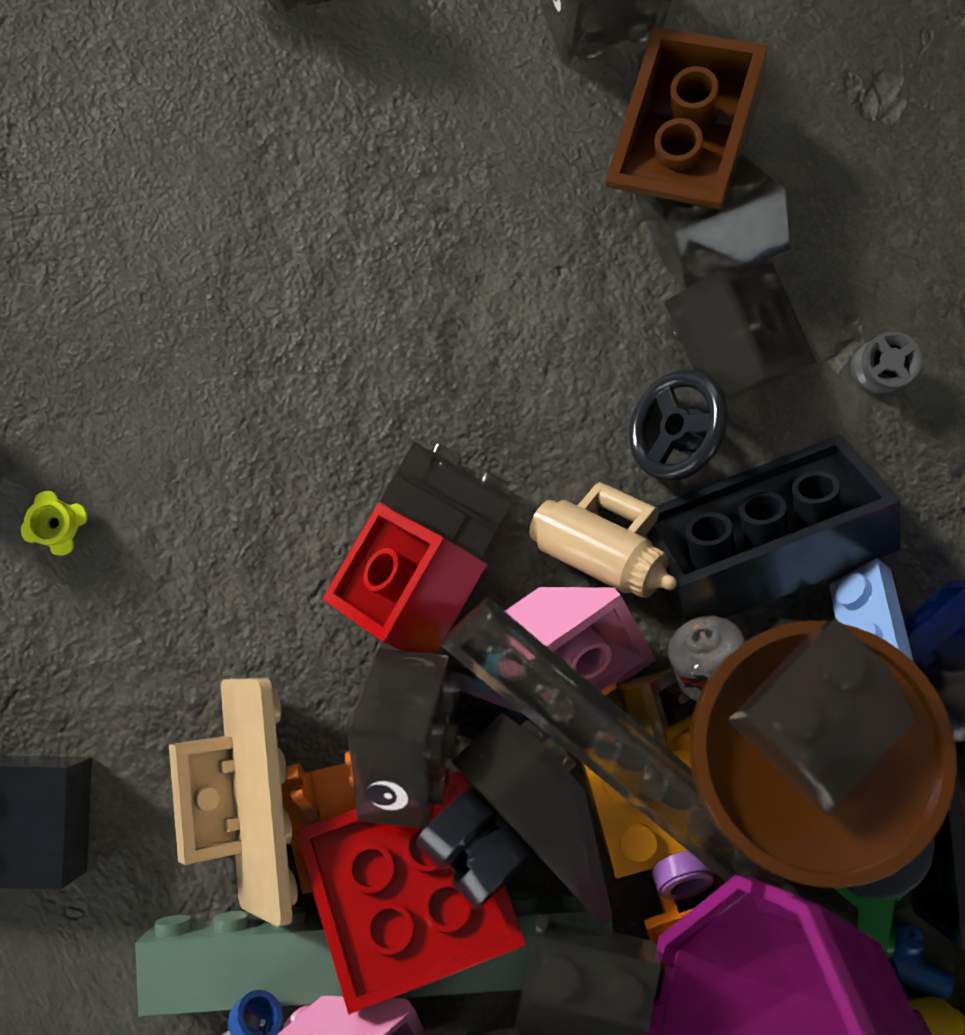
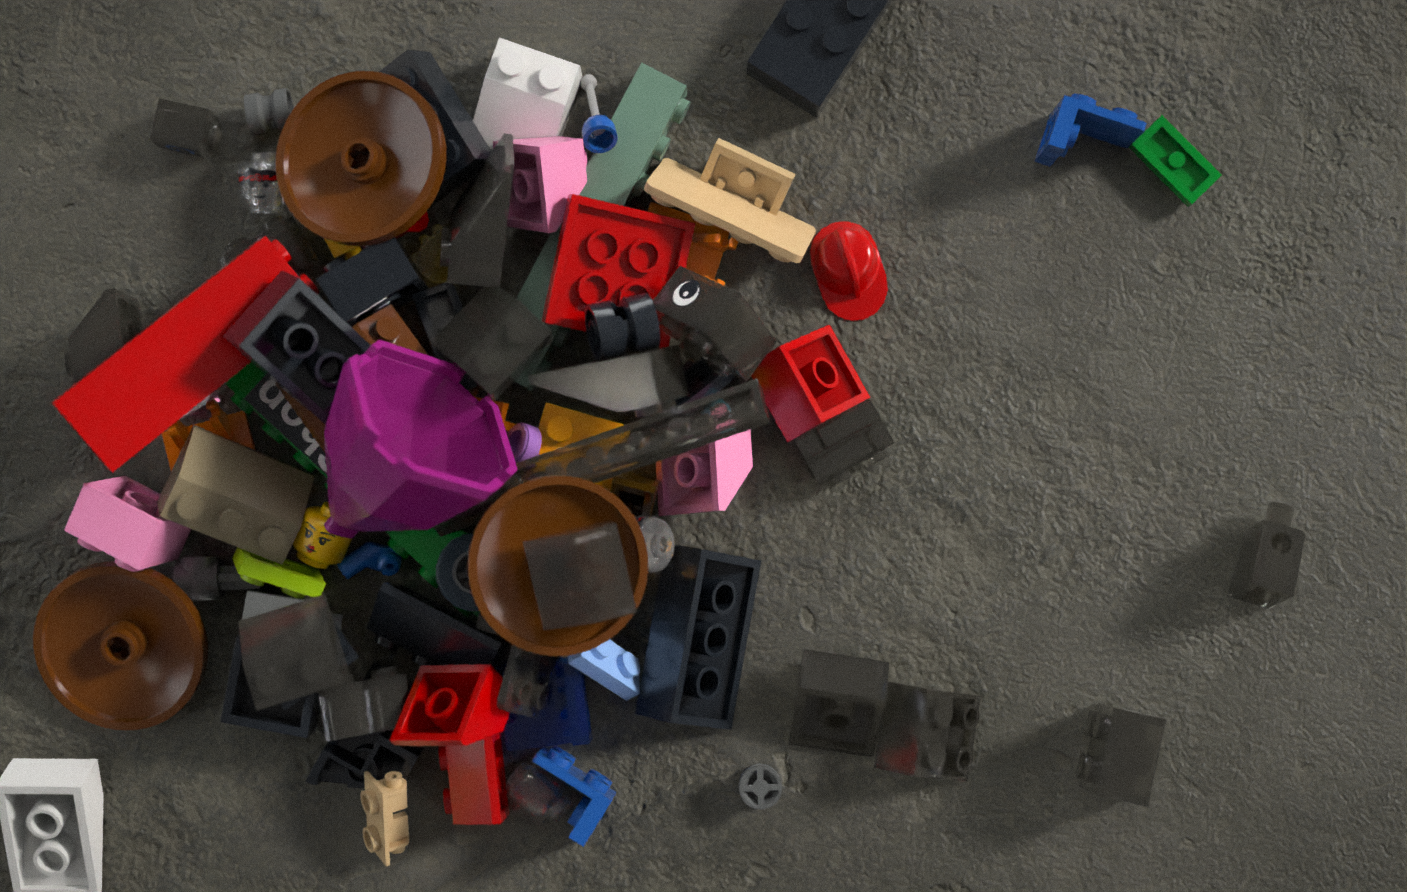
camera: 125 degrees right, 0 degrees up
(38, 517) = (995, 182): neon yellow plate -> none
(247, 614) = (848, 270): none -> red piece
(601, 547) = (753, 521): tan piece -> none
(680, 428) = (799, 622): black piece -> none
(688, 117) = (997, 747): reddish brown slope -> none

